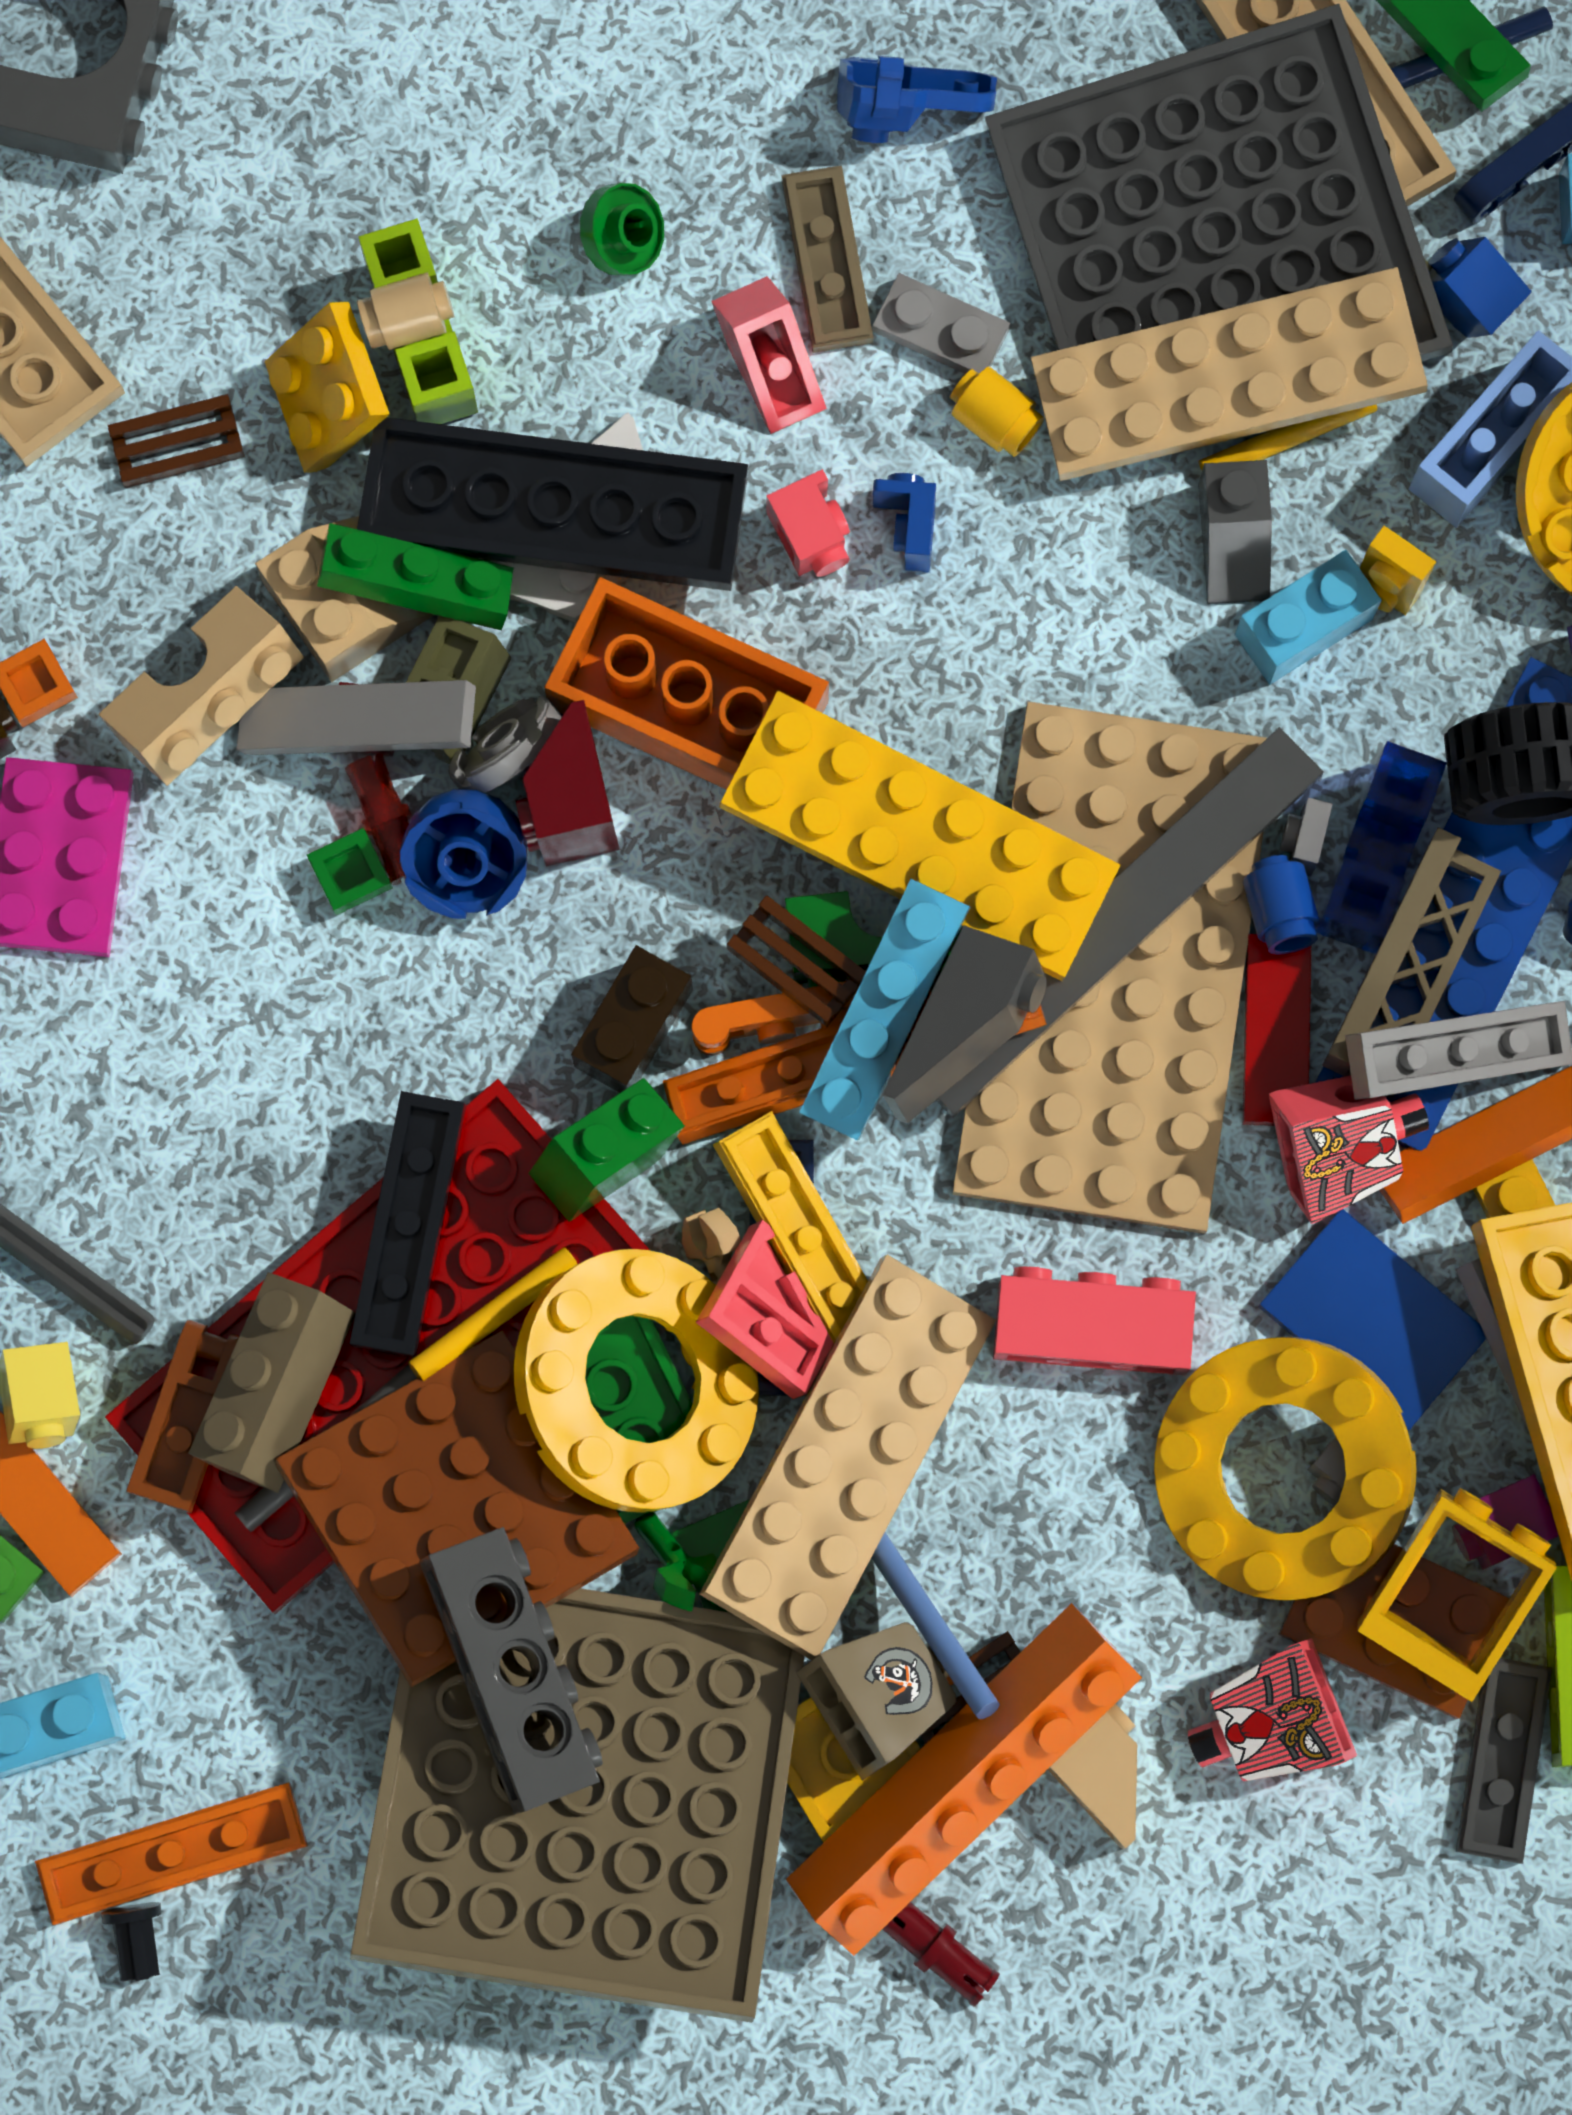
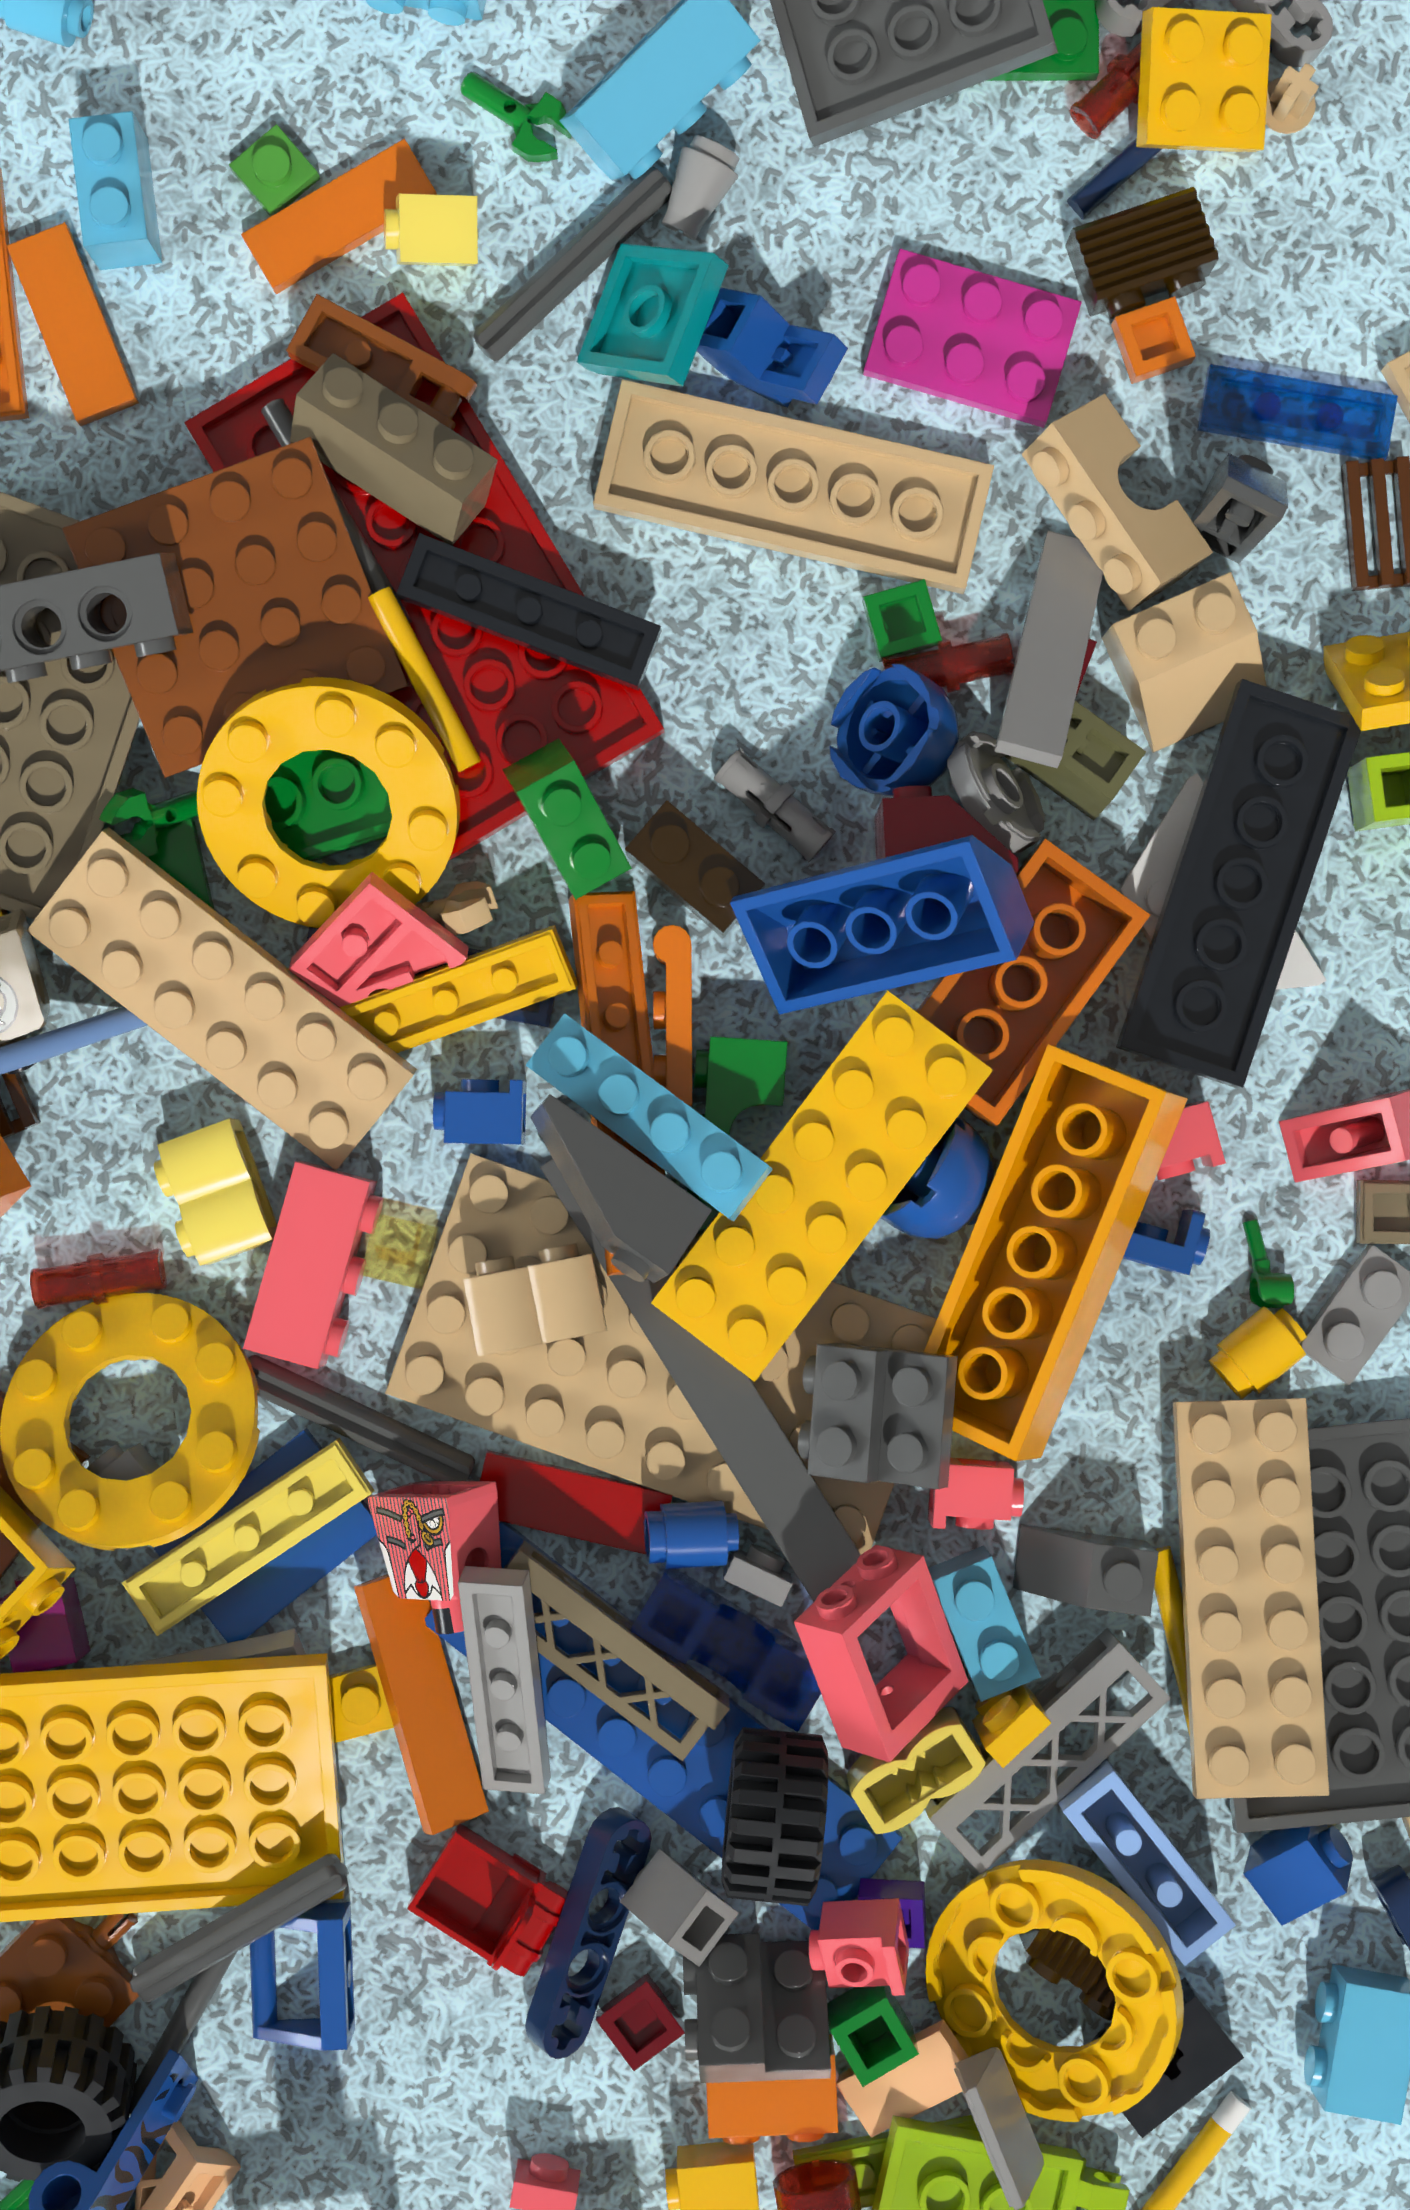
camera: 100 degrees right, 10 degrees up
(81, 537) = (1297, 412): none -> clear blue tile
(89, 1163) = (652, 313): none -> teal plate
(109, 1045) = (765, 352): none -> blue brick
(186, 565) = (1240, 506): none -> dark grey slope
(187, 1752) = (72, 324): none -> orange tile
(234, 1001) = (792, 486): none -> tan plate
(415, 576) = (1187, 730): green plate -> none
(553, 961) = (774, 804): none -> light grey pin
(660, 816) = (885, 923): none -> blue slope
(755, 927) = (760, 1004): reddish brown tile -> none
(899, 718) = (946, 1186): none -> blue cylinder
(912, 1184) = (482, 1113): none -> blue brick
(931, 417) = (1265, 1288): none -> green hand
(942, 617) = (1049, 1246): none -> light orange brick
(1041, 1432) = (216, 1192): none -> light yellow brick
(1064, 1243) = (400, 1251): none -> clear yellow tile
(1086, 1090) = (534, 1302): none -> tan brick
(1128, 742) = (879, 1415): none -> dark grey plate
(1151, 1537) = (98, 1278): none -> clear red pin
(1185, 650) = (977, 1495): none -> coral brick
(1242, 1246) = (360, 1423): none -> dark grey axle
(1376, 1334) = (248, 1536): none -> light yellow tile
(1407, 701) = (887, 1715): none -> coral window
(1448, 587) = (1064, 1702): none -> light grey fence
(1449, 643) = (931, 1766): none -> light yellow brick

